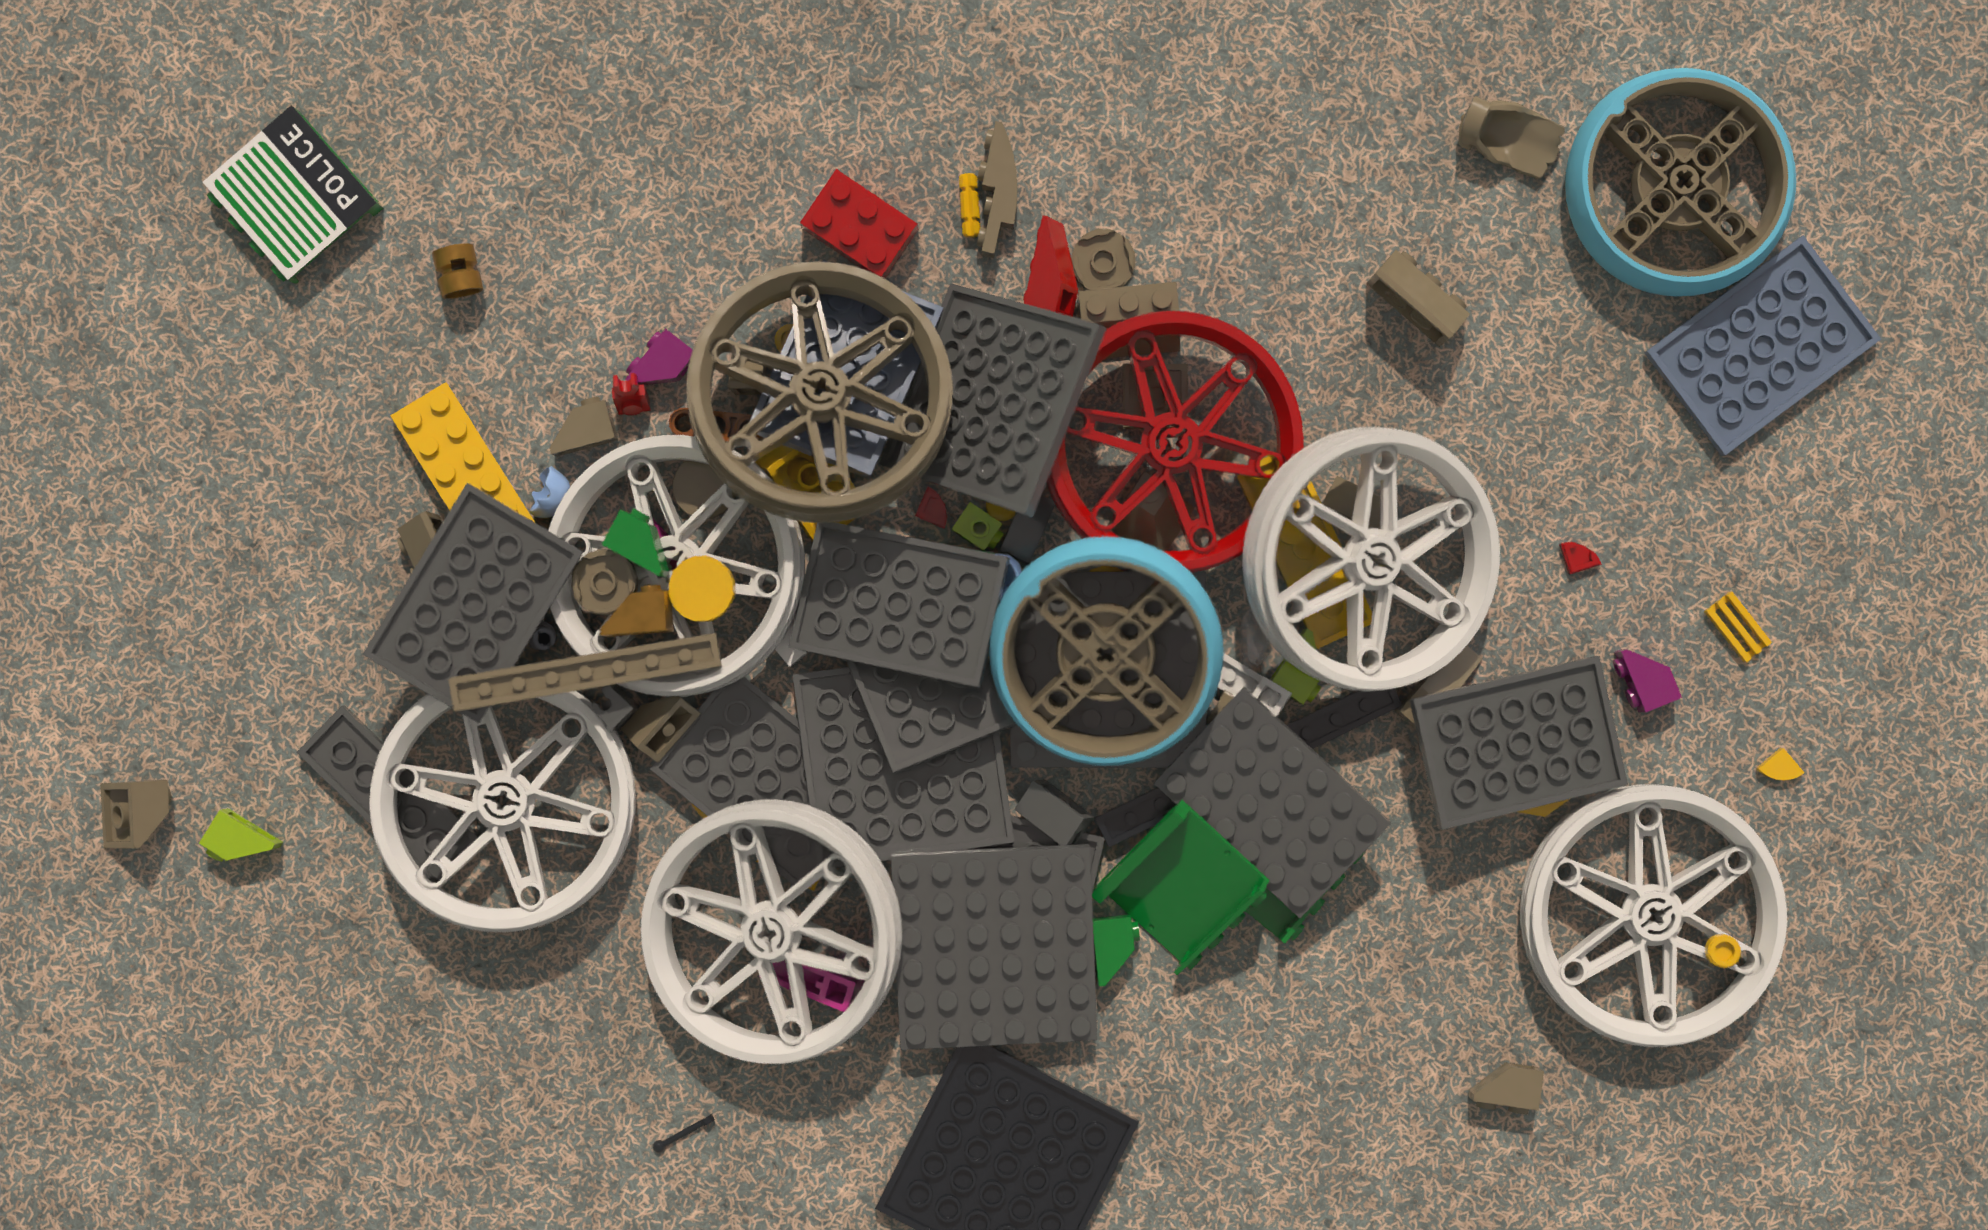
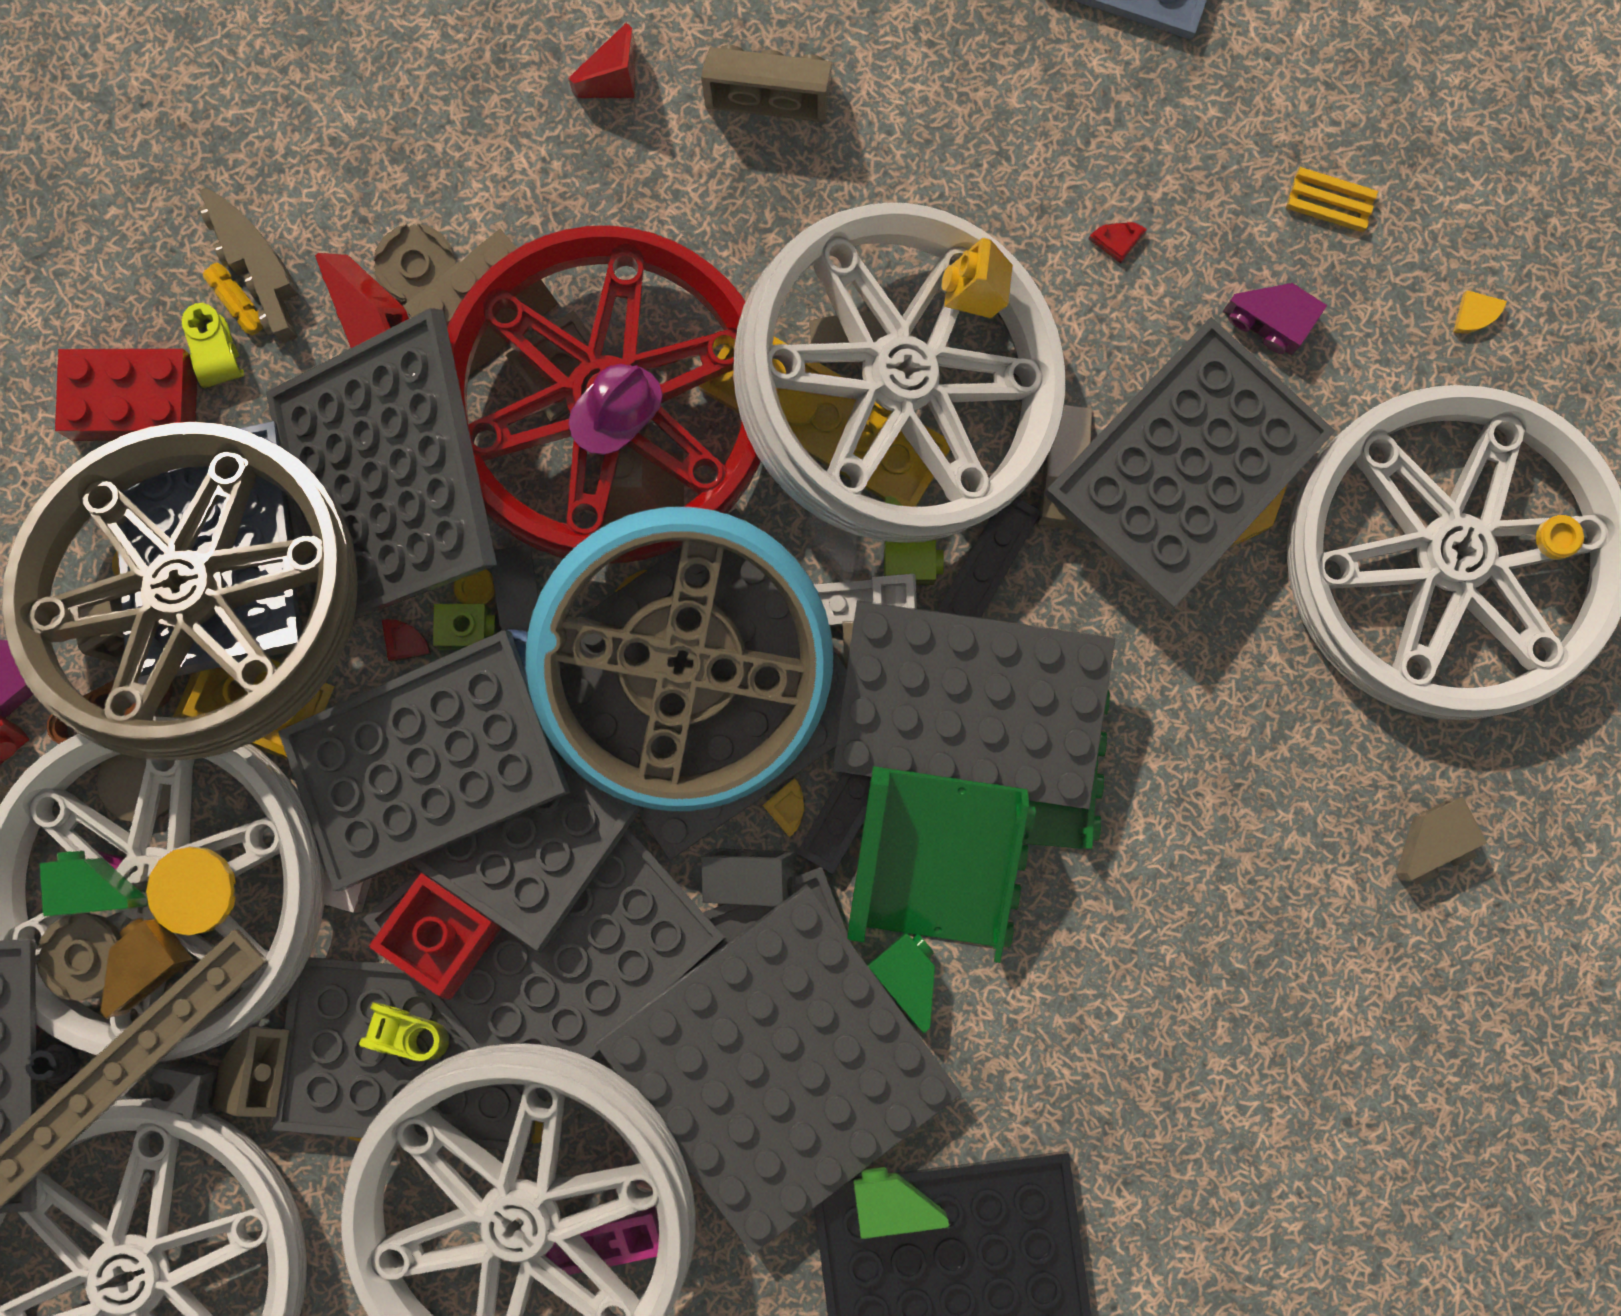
camera: 35 degrees left, 5 degrees down
(770, 764) = (396, 1033): none -> neon yellow piece
(835, 720) = (434, 937): none -> red brick
(934, 234) = (213, 351): none -> neon yellow piece
(1007, 1079) = (893, 1205): none -> bright green slope
(1107, 784) = (787, 807): none -> yellow tile
(1172, 461) = (614, 408): none -> magenta piece
(1319, 217) = (609, 70): none -> red slope
(1462, 535) = (978, 280): none -> yellow slope

